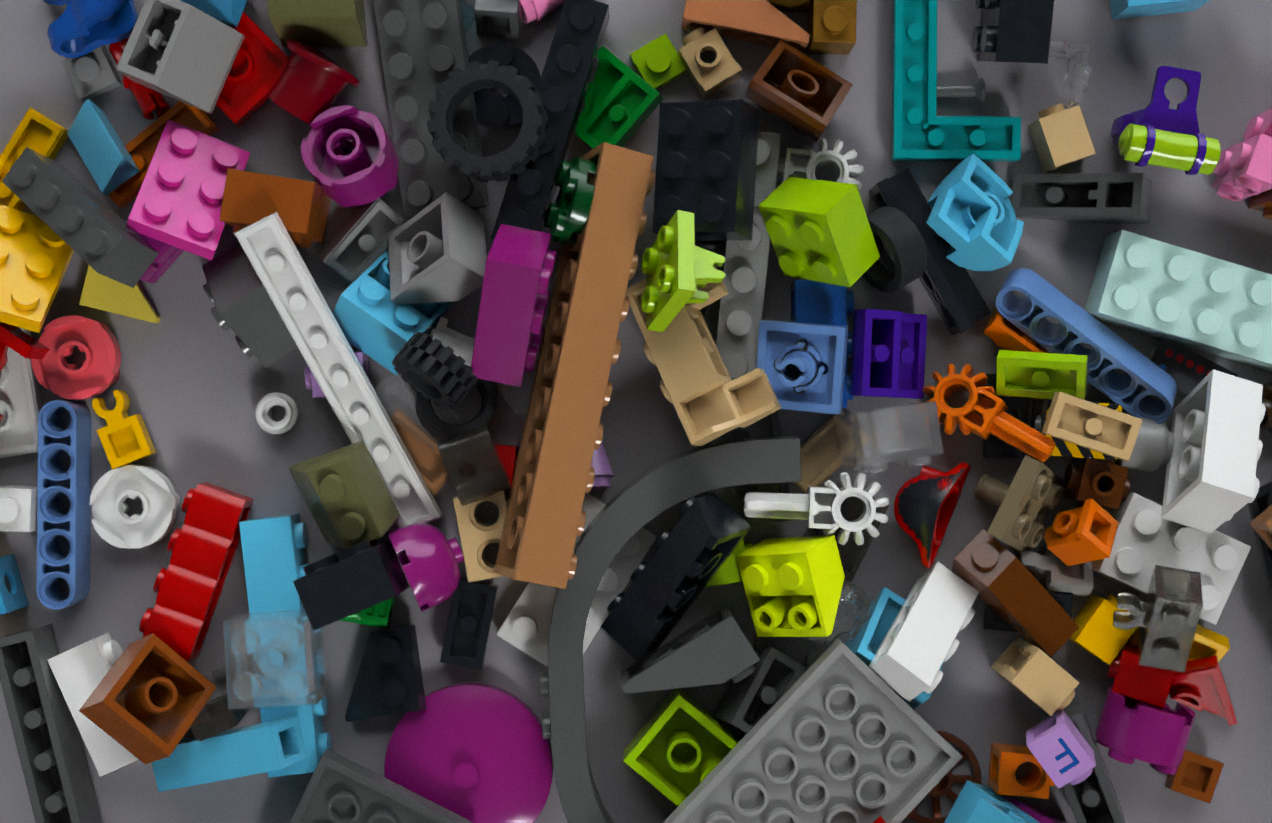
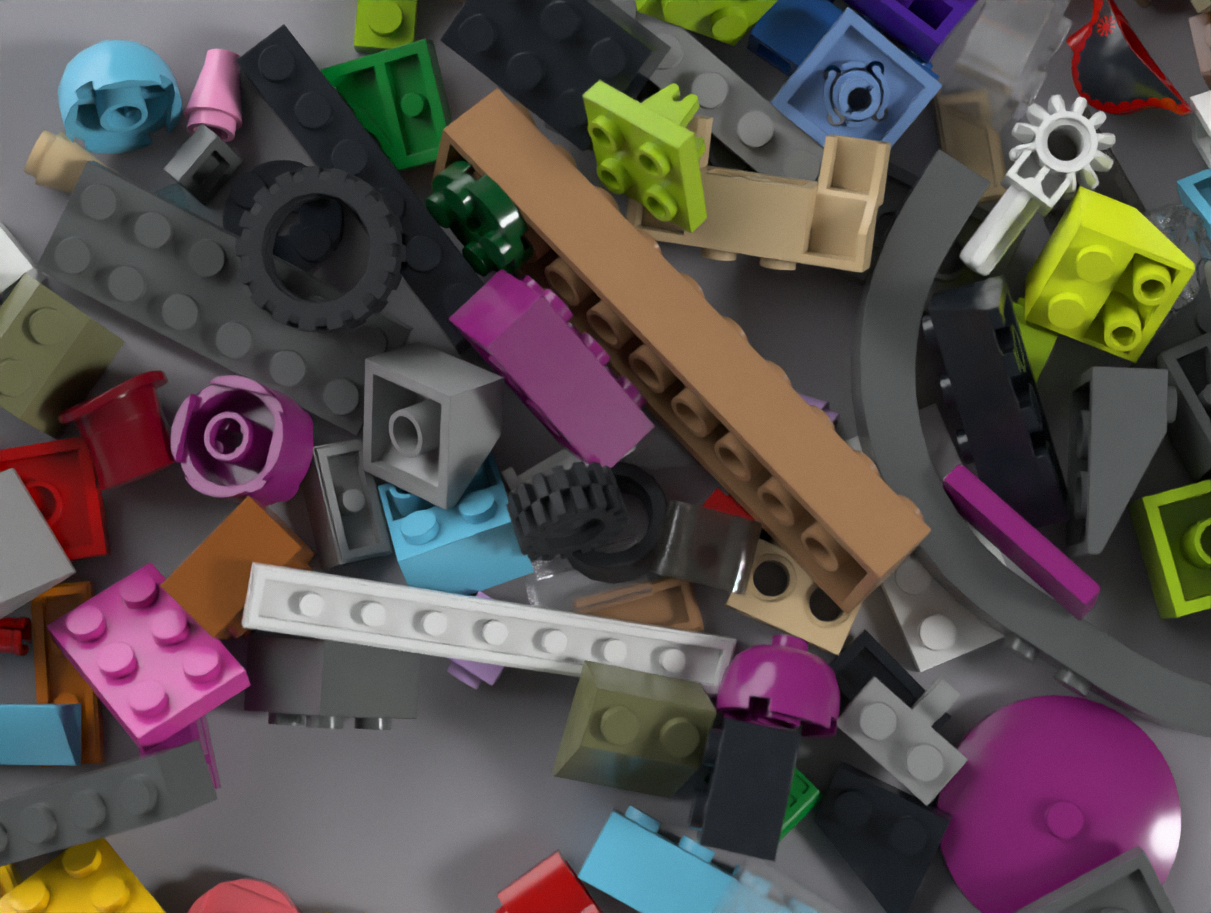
camera: 50 degrees left, 5 degrees down
(115, 297) = (198, 839): light yellow tile -> none
(264, 413) = (458, 753): white plate -> none
(449, 651) = (903, 735): none -> light grey plate
(601, 642) = (1021, 542): none -> magenta tile

